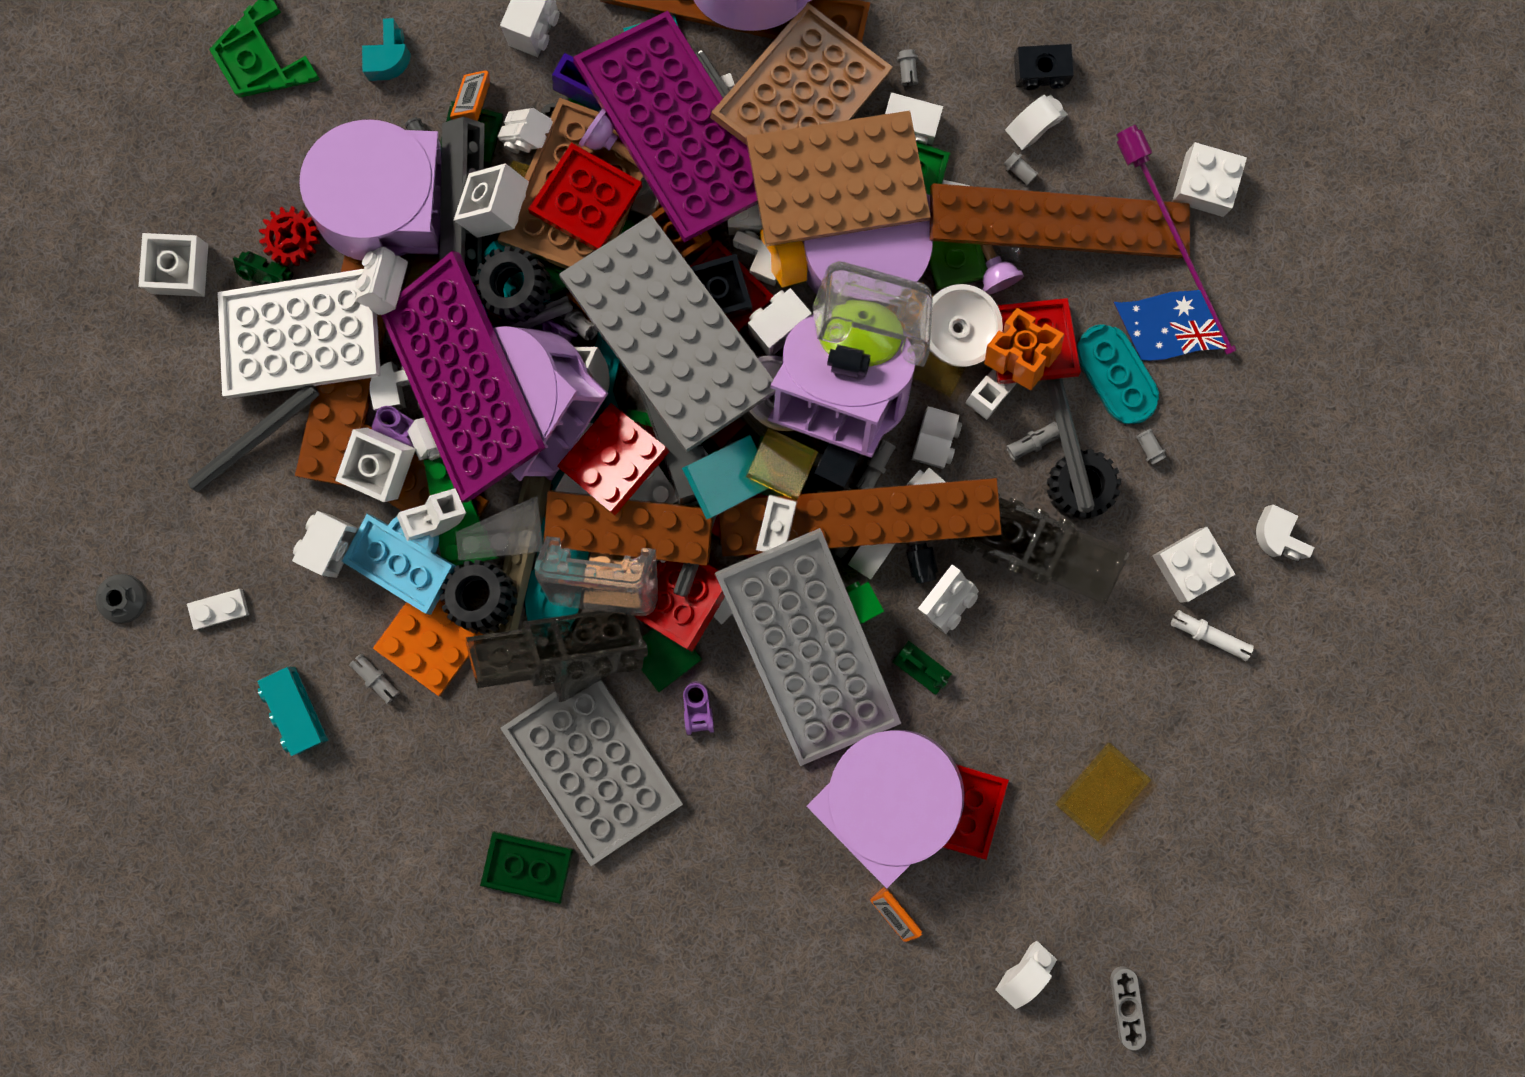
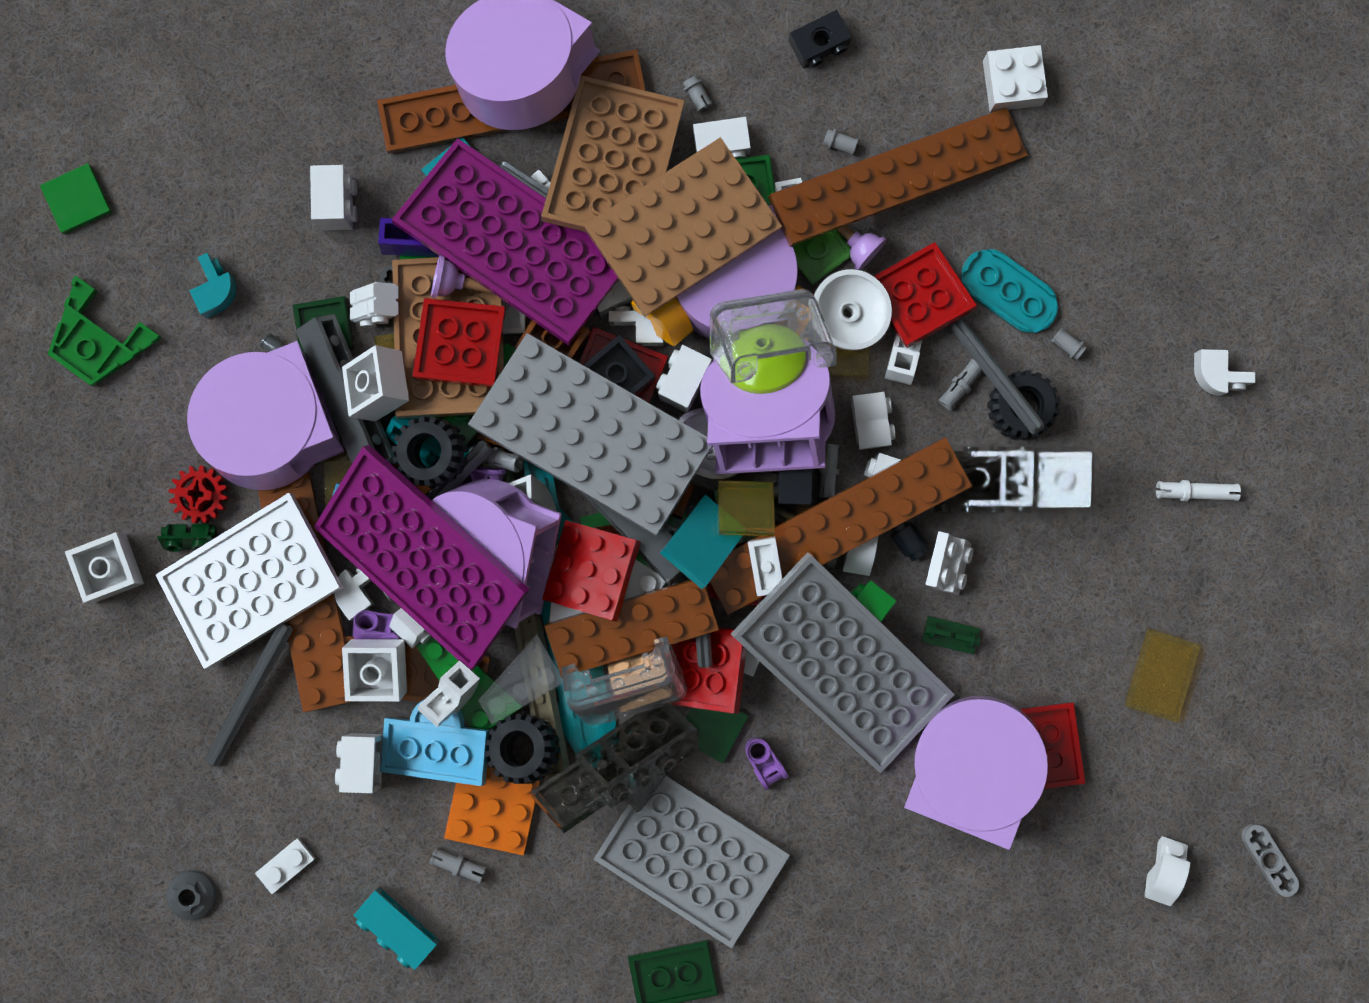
camera: 25 degrees left, 0 degrees up
(381, 280) = (305, 500): white brick -> none
(471, 95) = (309, 293): slope -> none
(848, 361) = (768, 391): black brick -> none
(896, 915) = (1026, 869): slope -> none
(1024, 349) = (917, 307): orange brick -> none
(1035, 121) = (835, 93): white brick -> none
(1174, 320) = (1039, 220): flag -> none
(1193, 565) = (1154, 434): white brick -> none

